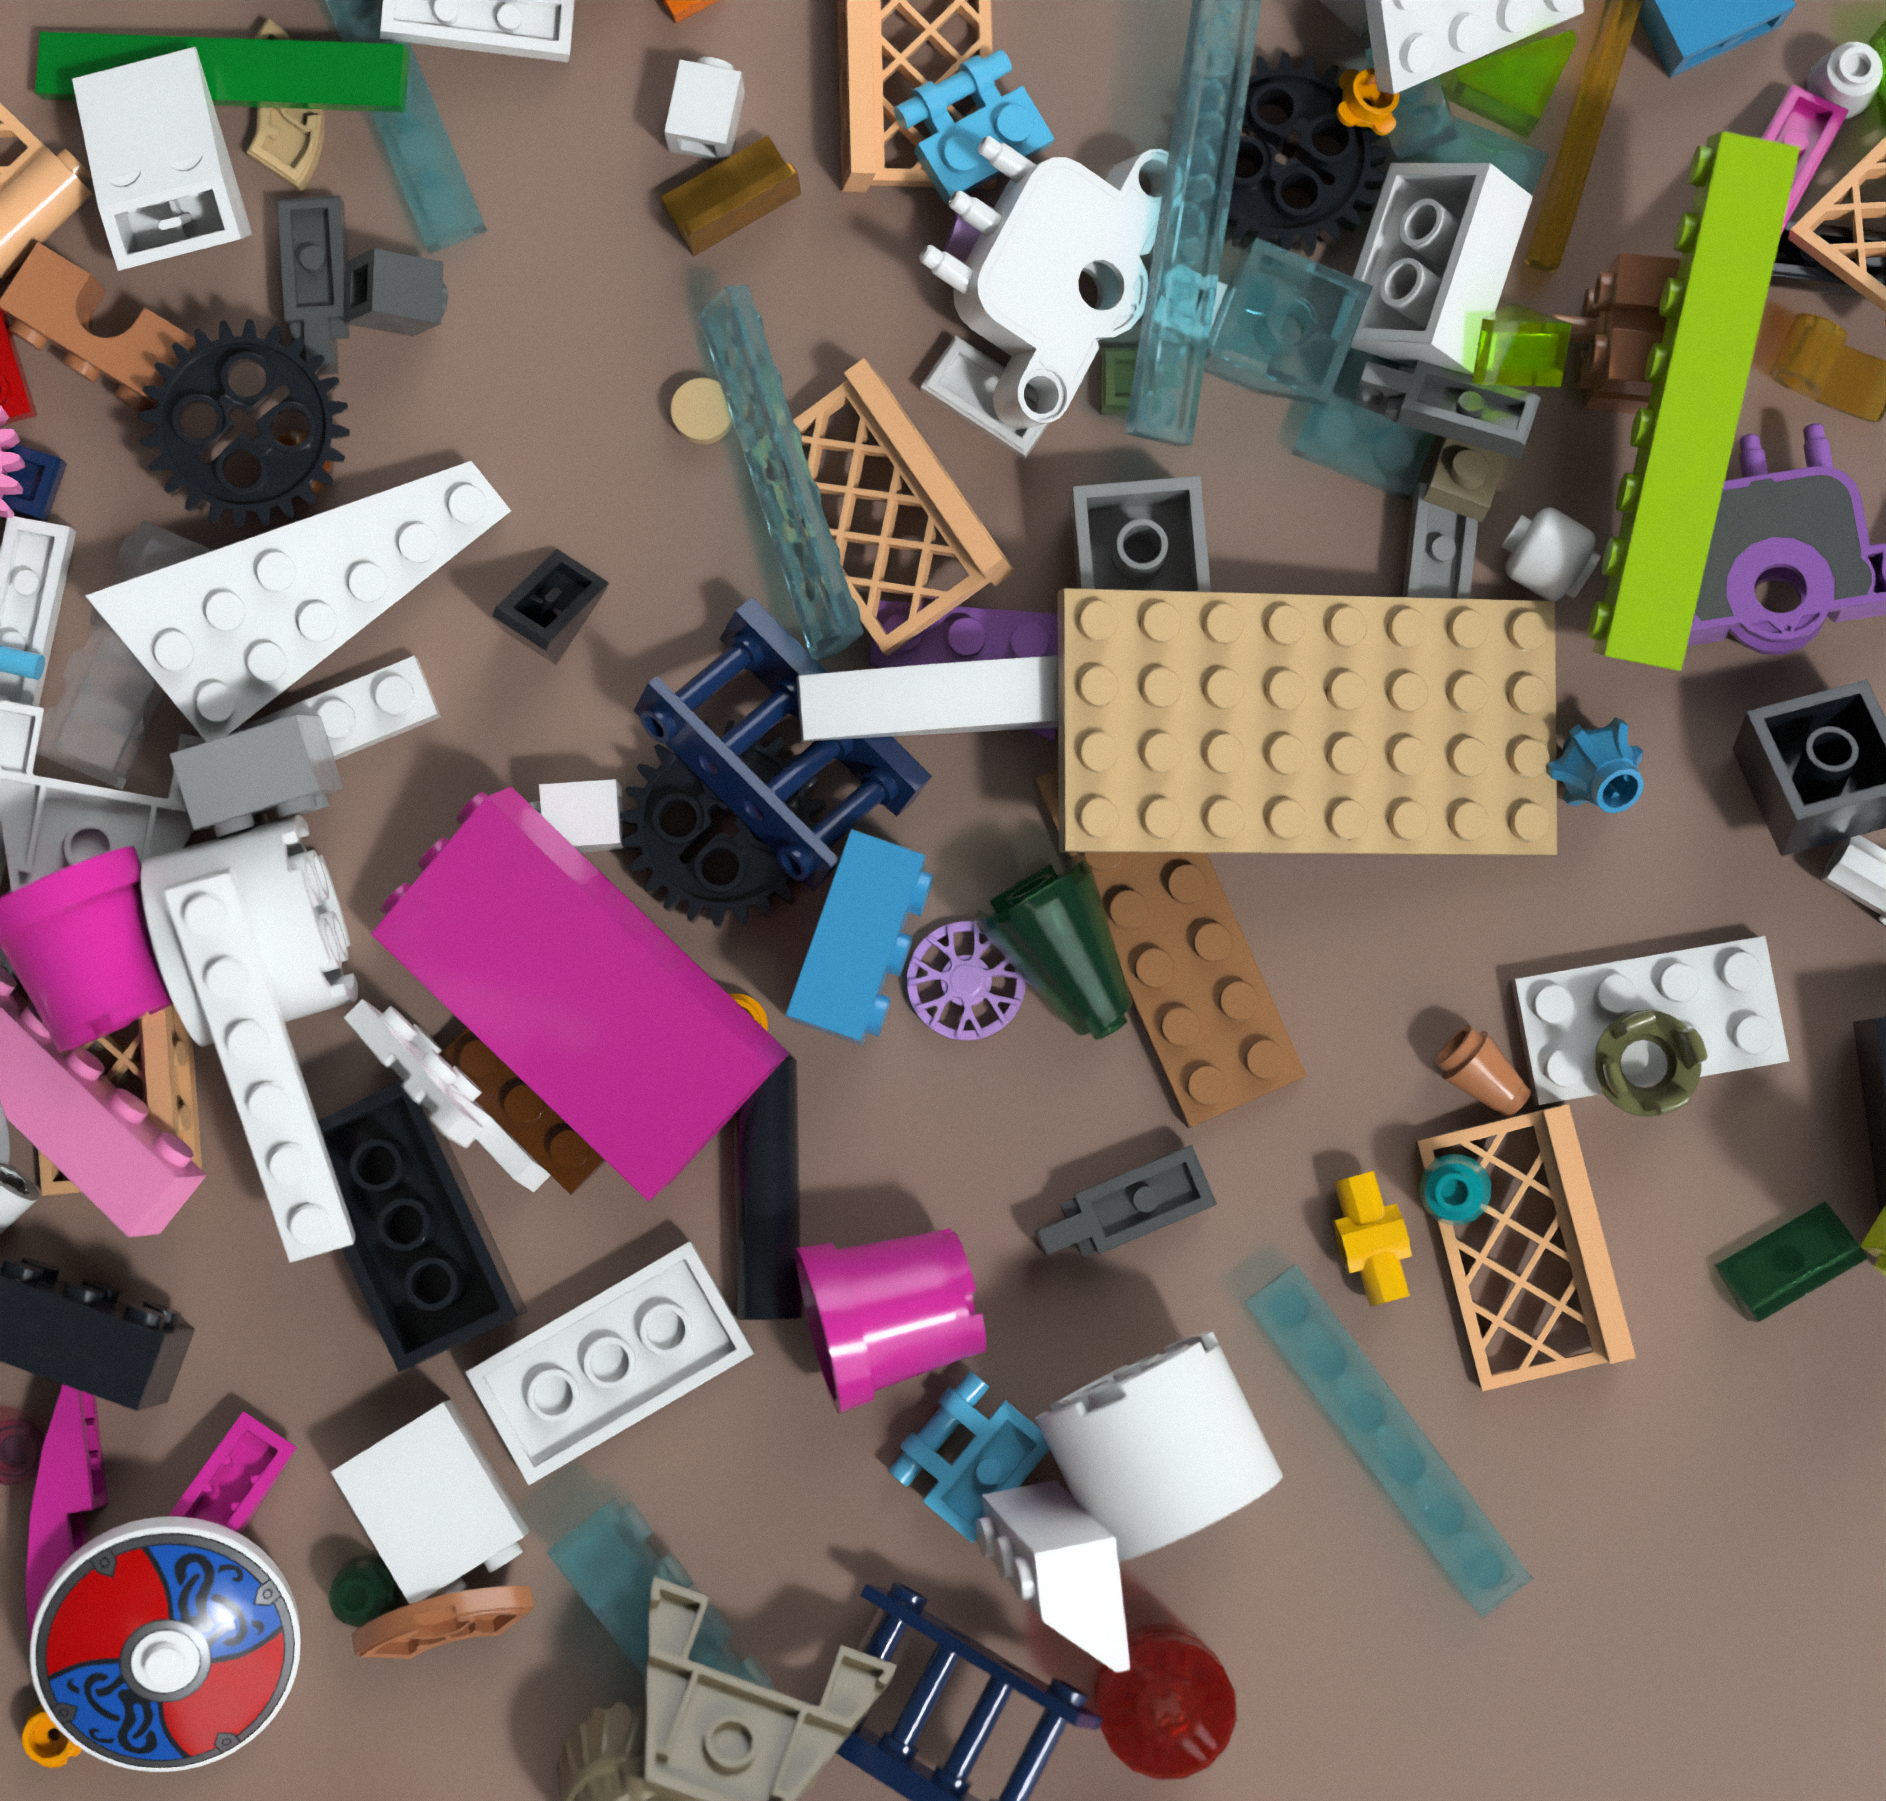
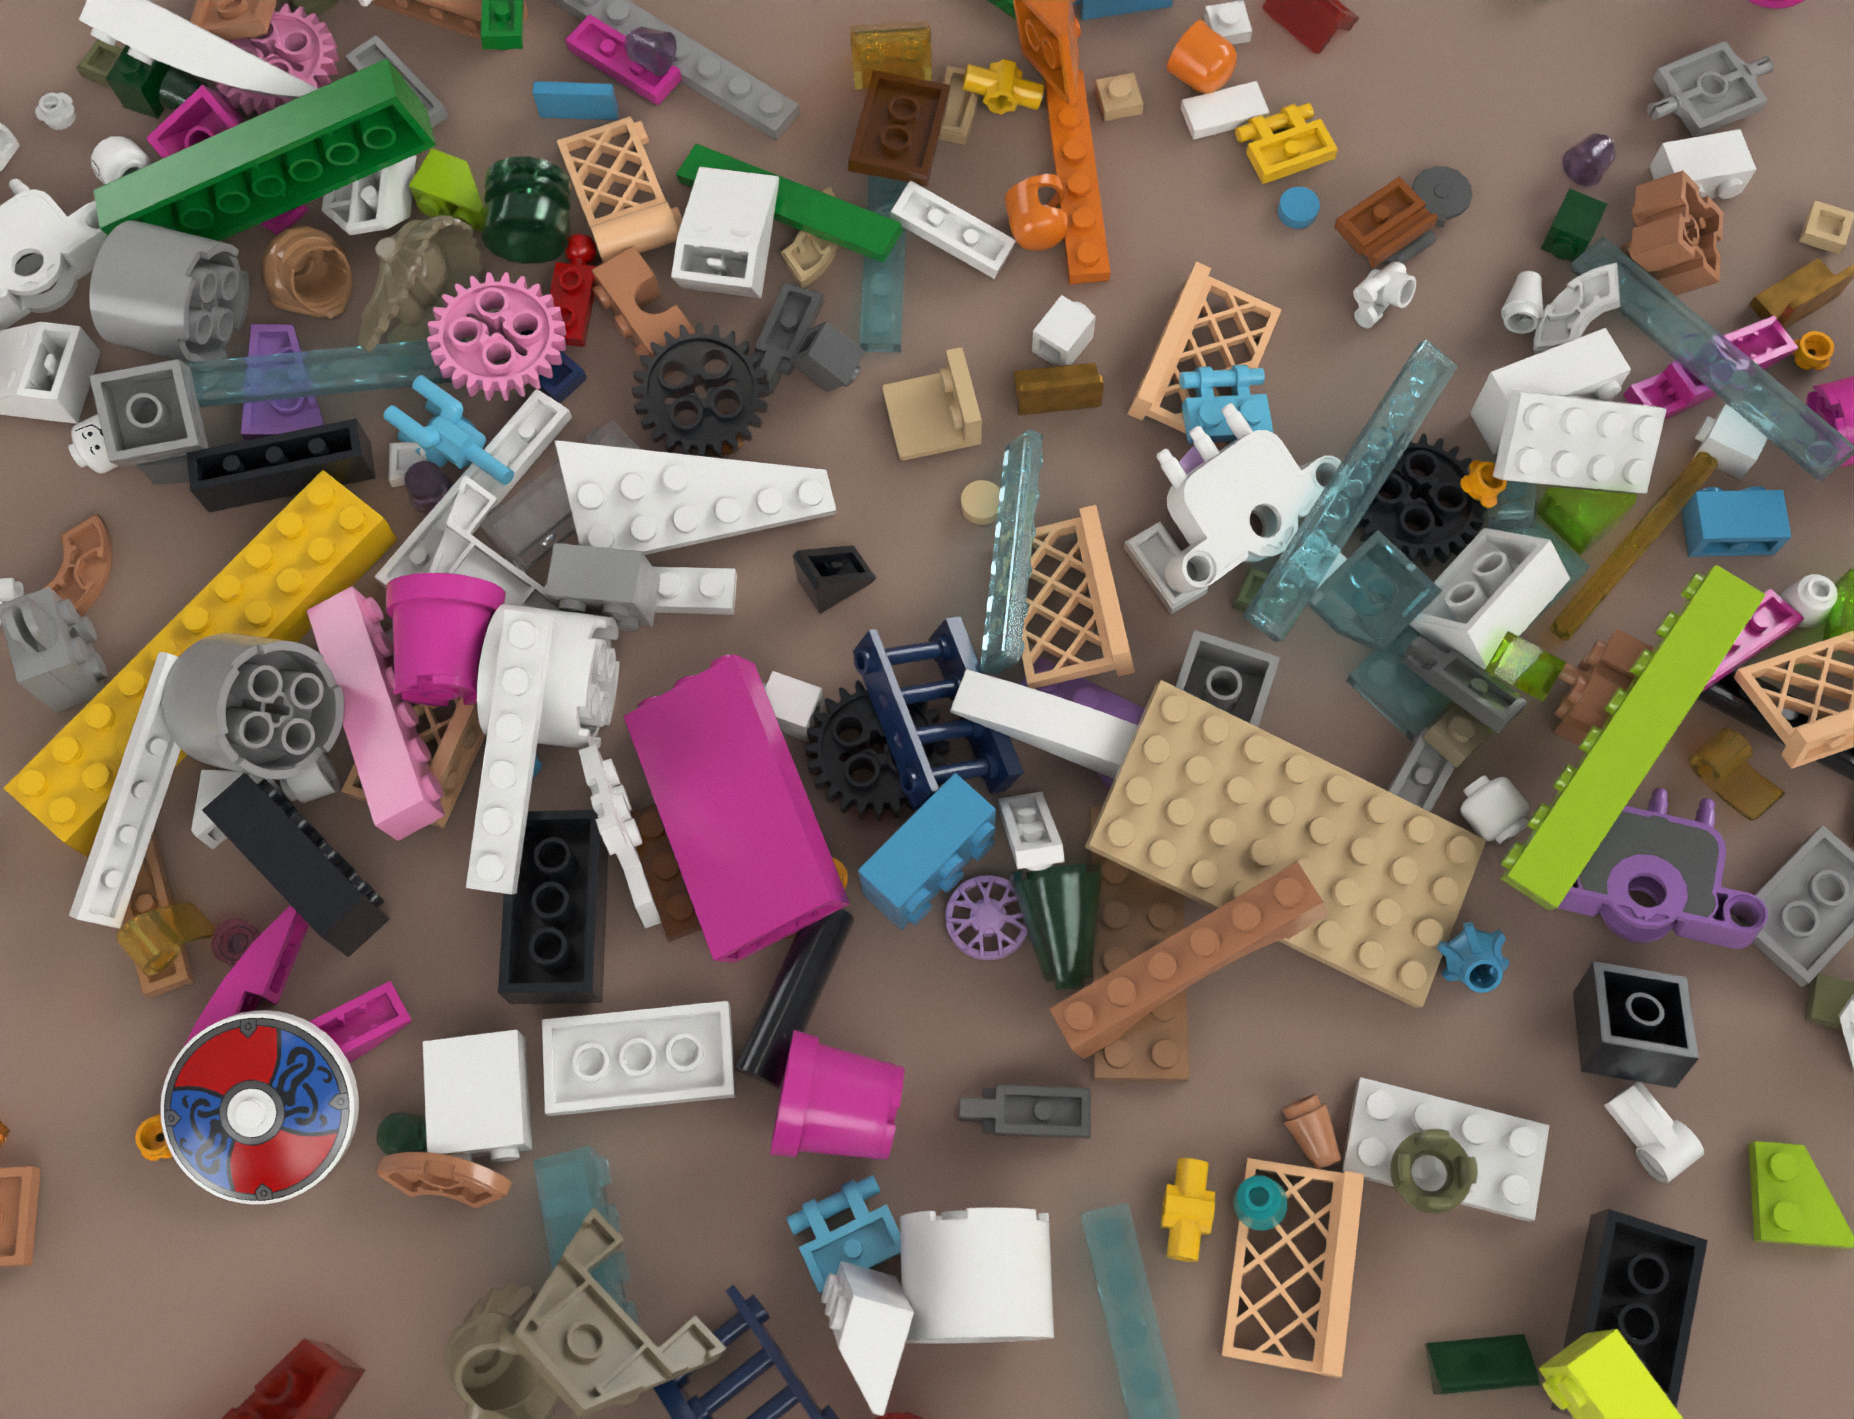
camera: 30 degrees right, 15 degrees down
(577, 306) = (934, 410): none -> tan bracket
(977, 855) = (1031, 831): none -> white plate
(1251, 940) = (1247, 923): none -> nougat arch

